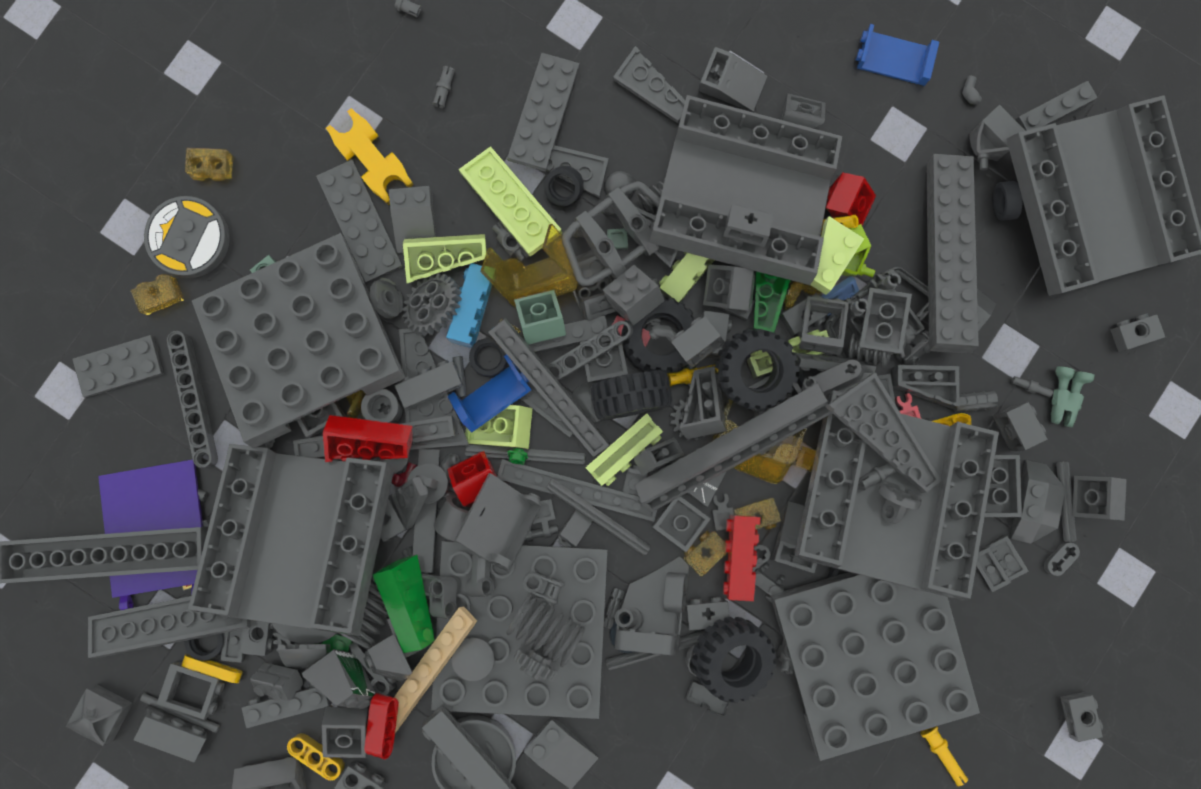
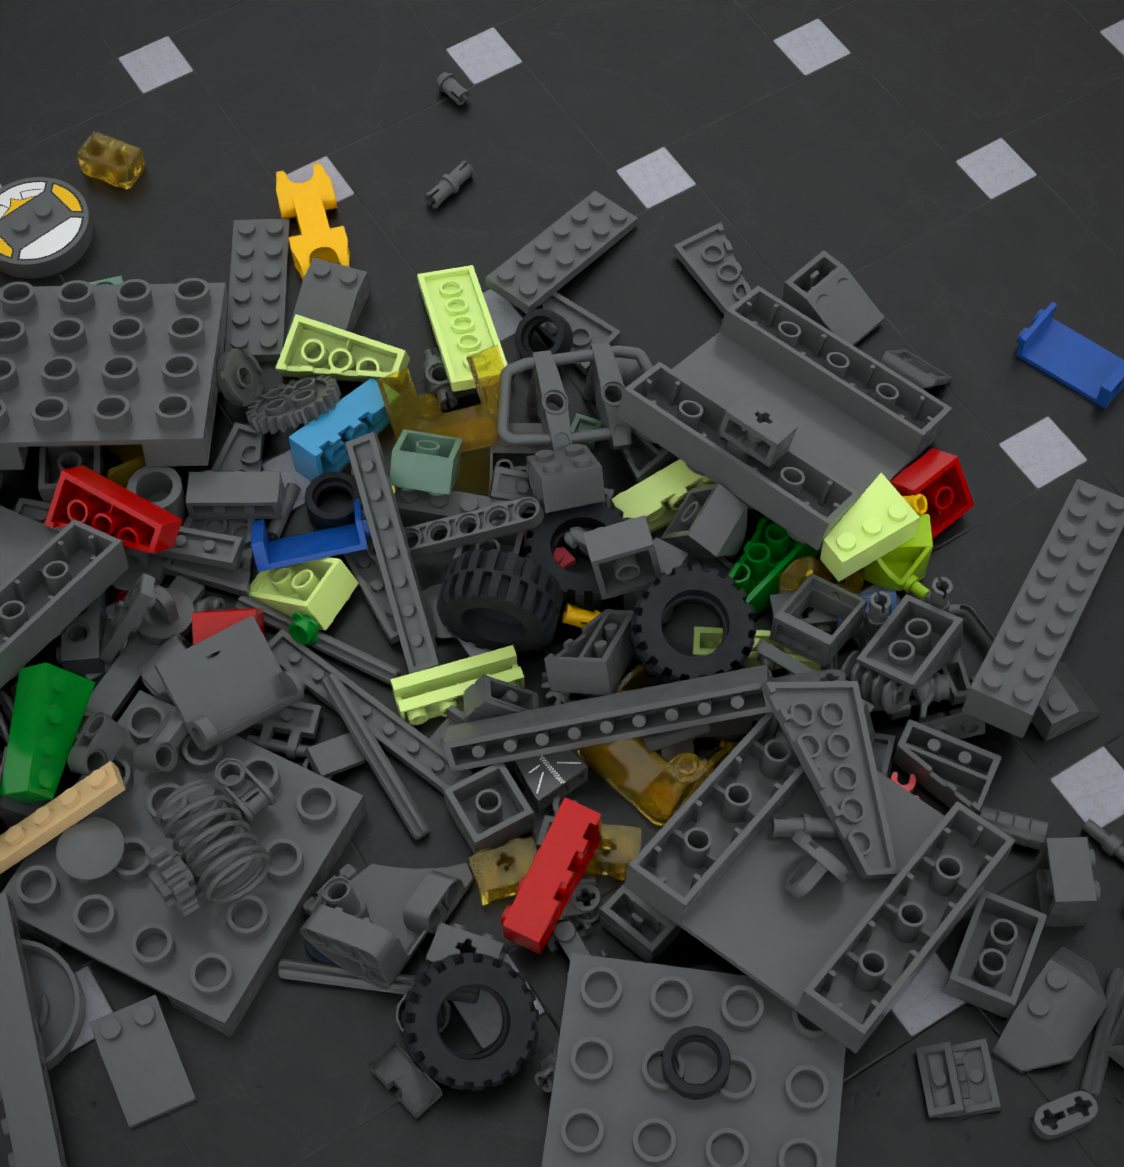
camera: 30 degrees right, 25 degrees down
(890, 643) = (701, 1035): none -> black tyre

